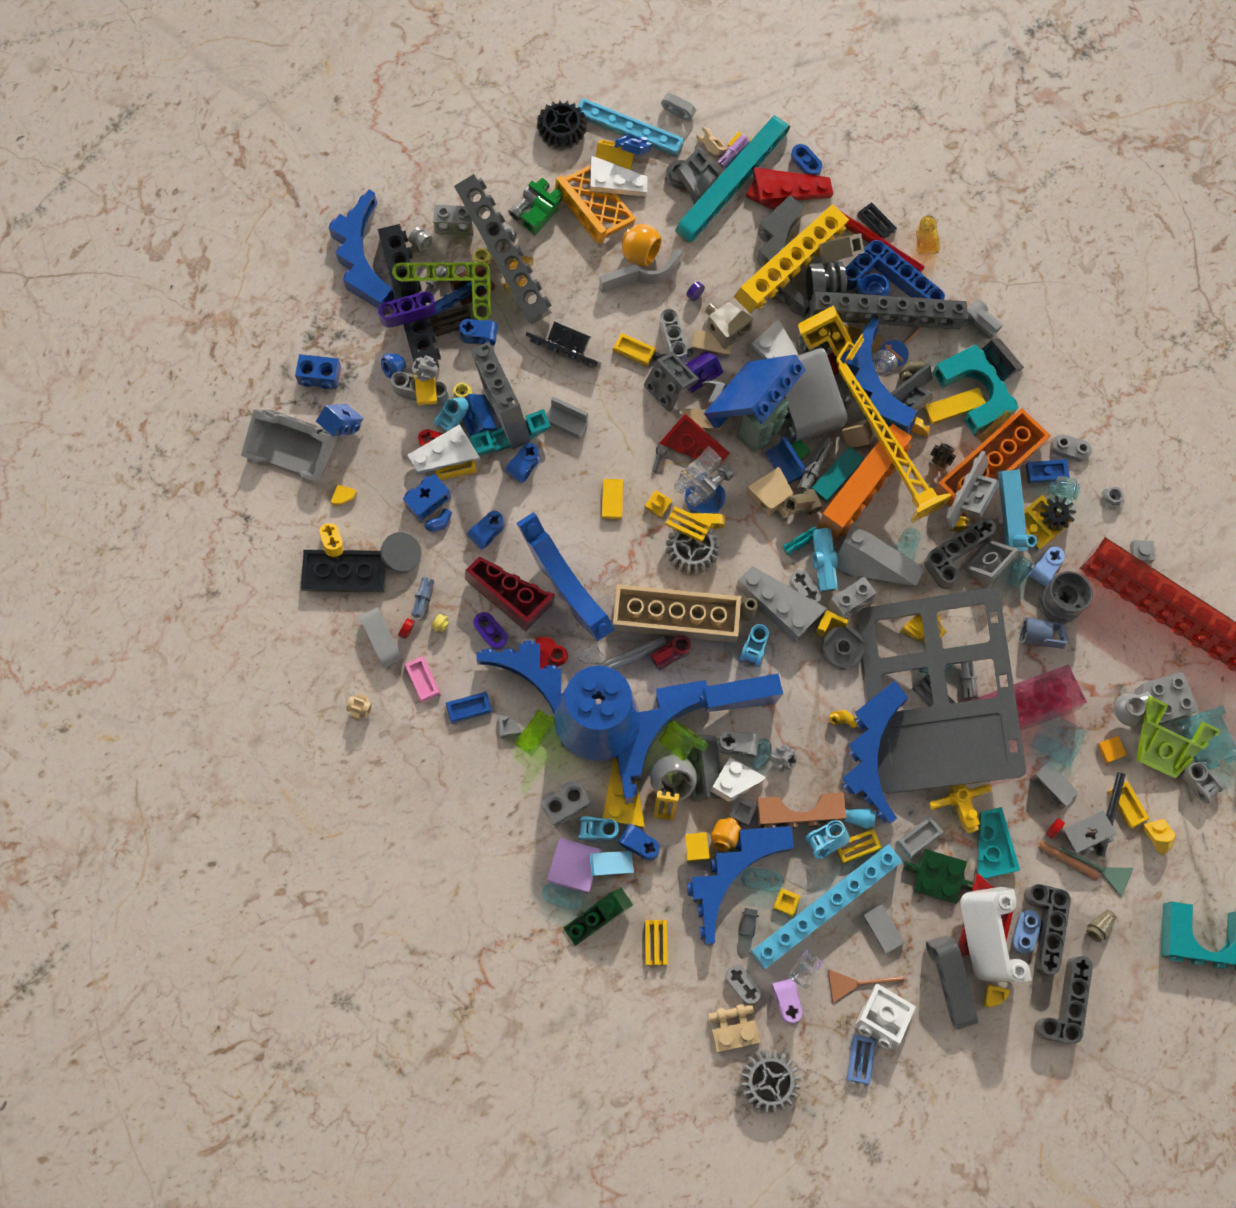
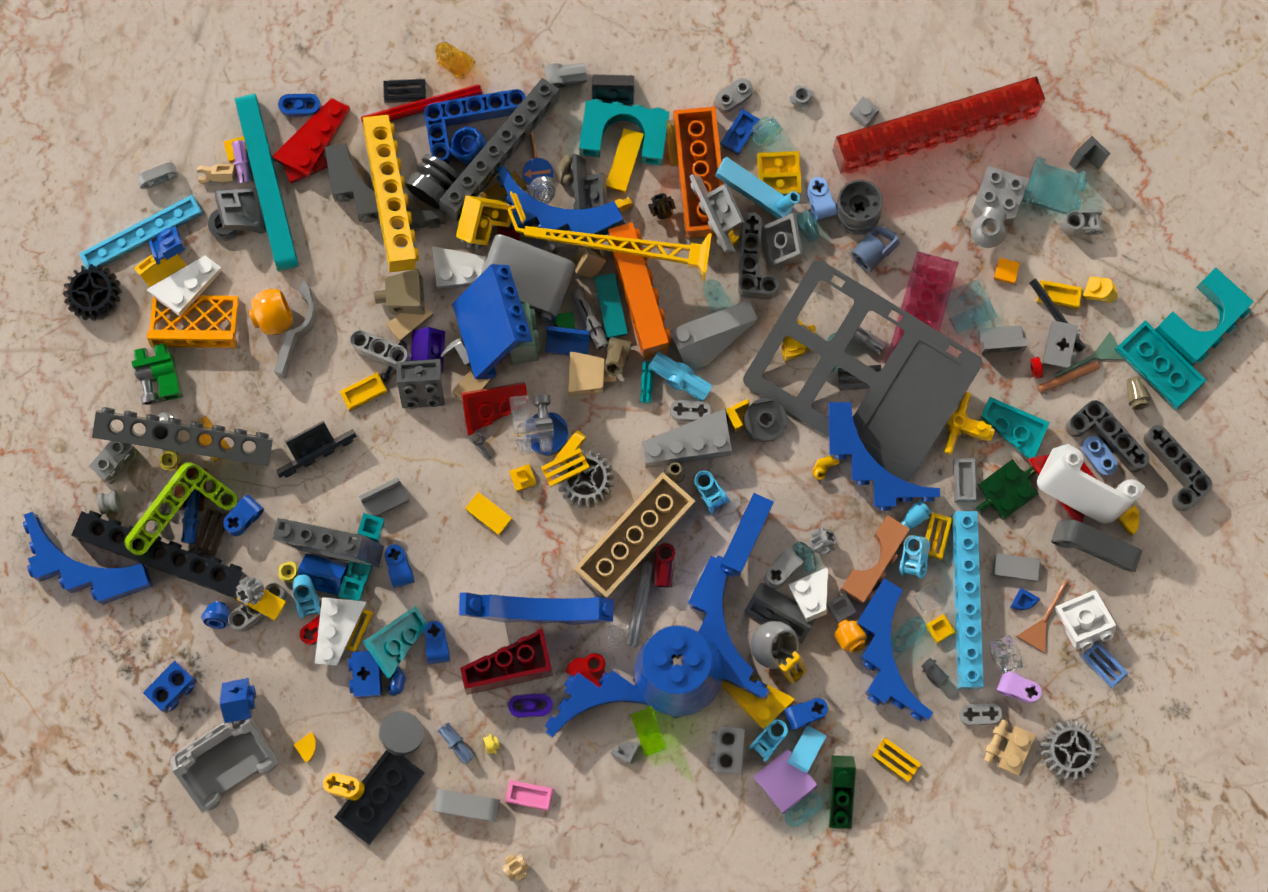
camera: 50 degrees left, 5 degrees up
(399, 316) = (175, 554): dark purple beam -> none
(406, 628) = (474, 777): red tile -> none
(466, 497) = (395, 639): none -> teal wing
(468, 707) = (584, 772): blue tile -> none
(681, 740) = (748, 614): clear neon green panel -> none
(695, 291) = (350, 297): dark purple tile -> none
(696, 847) = (844, 668): yellow panel -> none
(841, 248) = (412, 143): dark tan slope -> none
(852, 598) = (729, 380): light grey brick -> none
(861, 954) = (1024, 600): none -> blue tile
(1051, 515) = (786, 147): black gear -> none
(1140, 929) = (1160, 365): none -> teal tile
(1166, 749) = (1038, 230): lime wing -> none

